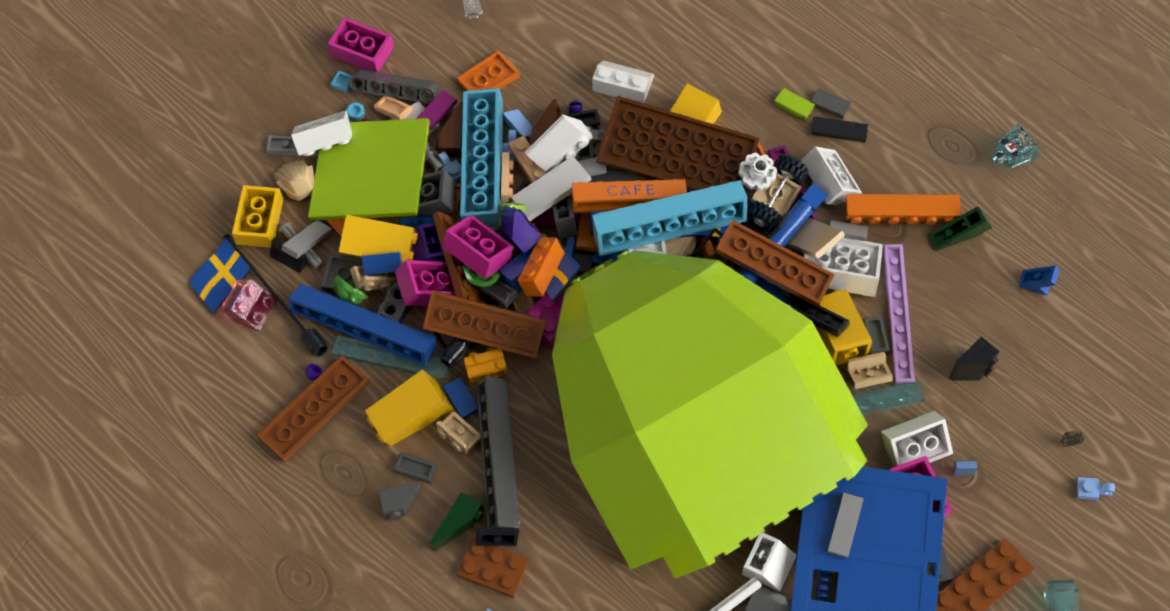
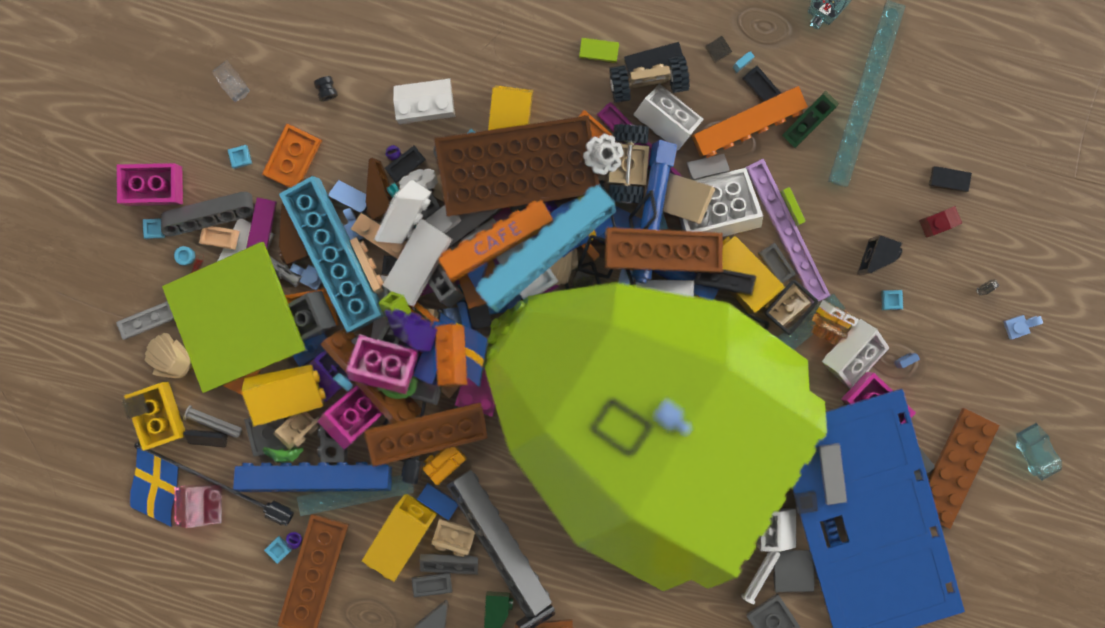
camera: 25 degrees left, 25 degrees up
(248, 195) = (135, 406): none -> clear smoke tile
(294, 375) = (277, 549): none -> medium azure tile
(306, 239) = (214, 418): light grey tile -> none
(322, 133) = (166, 302): white slope -> none
(381, 262) = (300, 417): blue tile -> none
(435, 250) = (343, 382): none -> medium azure tile
(441, 454) = (448, 564): none -> dark grey plate
(445, 59) = (239, 156): none -> medium azure tile
(545, 38) = (325, 88): none -> black wheel
(689, 364) = (629, 412): none -> piece
(713, 363) = (670, 416): none -> light blue plate
(808, 540) = (806, 502): none -> clear smoke tile
(827, 136) = (676, 72): none -> black plate
(831, 103) = (633, 33): dark grey tile -> none
(846, 364) = (780, 296): none -> black piece
(901, 145) = (718, 49): none -> clear smoke tile
(908, 398) = (834, 320): none -> clear orange hips
(911, 285) = (792, 206): none -> lime tile
(918, 161) = (742, 62): none -> medium azure tile
(925, 183) = (761, 84): none -> black tile
(973, 412) = (892, 299): none -> medium azure tile
(1020, 232) = (866, 93): none -> clear light blue plate
(1039, 279) = (902, 138): blue slope -> none
(1048, 363) = (940, 222): none -> dark red slope
(1073, 333) = (950, 179): none -> black tile

